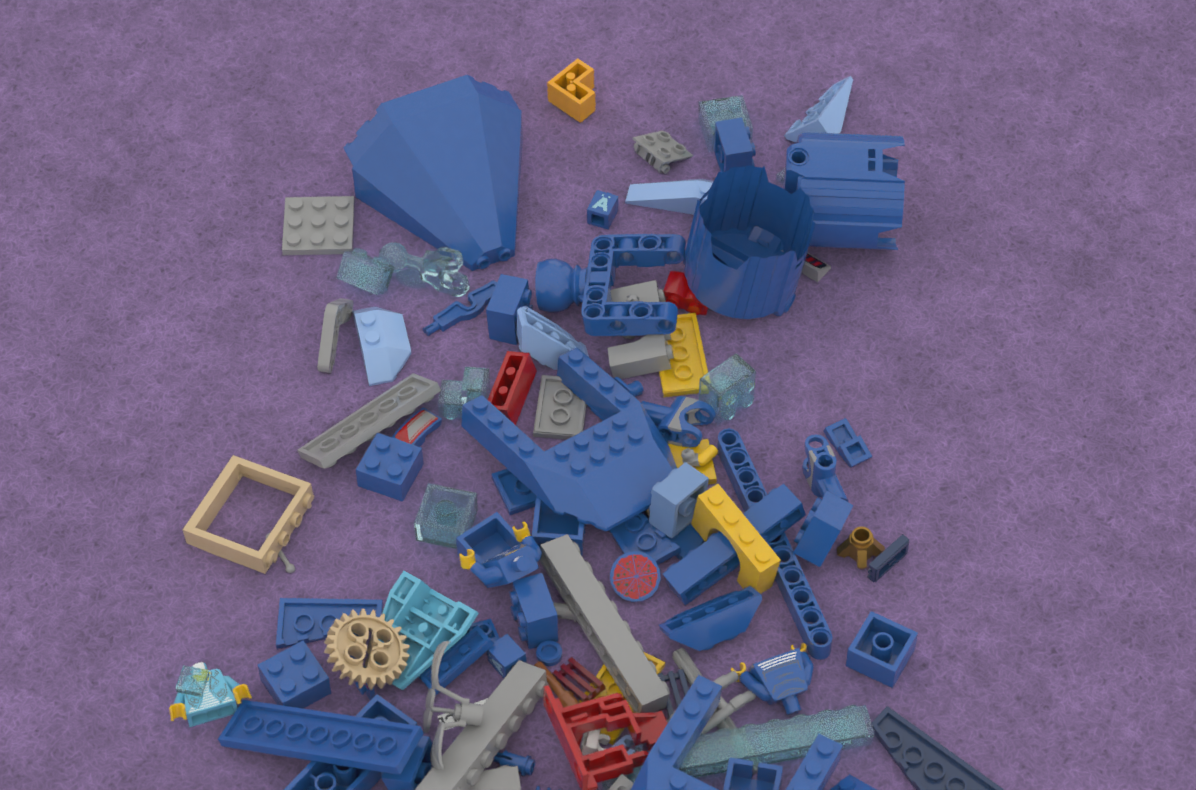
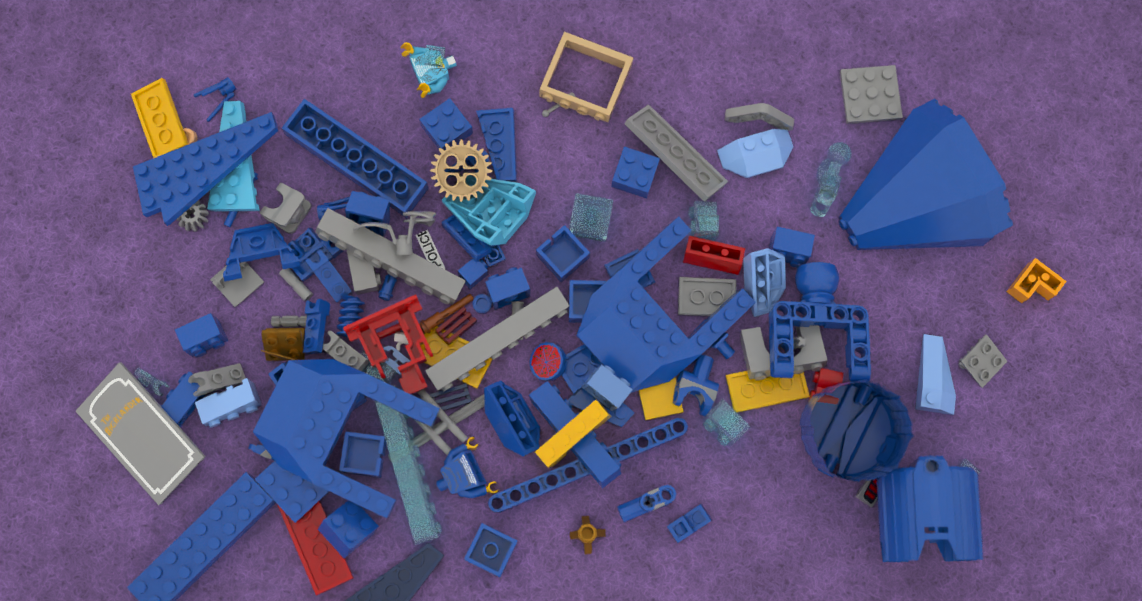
camera: 80 degrees right, 25 degrees up
(321, 736) = (385, 148): blue plate -> none
(365, 271) = (820, 133): clear light blue brick -> none
(418, 427) = (674, 188): slope -> none
(458, 312) = (793, 209): blue piece -> none
(507, 565) = (536, 264): blue torso -> none
(602, 209) = (909, 315): blue brick -> none
(699, 459) = (659, 403): arm -> none
(719, 110) = (1015, 412): clear light blue brick -> none
(733, 144) = (985, 418): blue brick -> none
(821, 528) = (591, 501): blue piece -> none
(827, 114) = (1028, 497): light blue wedge -> none
(888, 558) = (579, 557): dark blue tile -> none

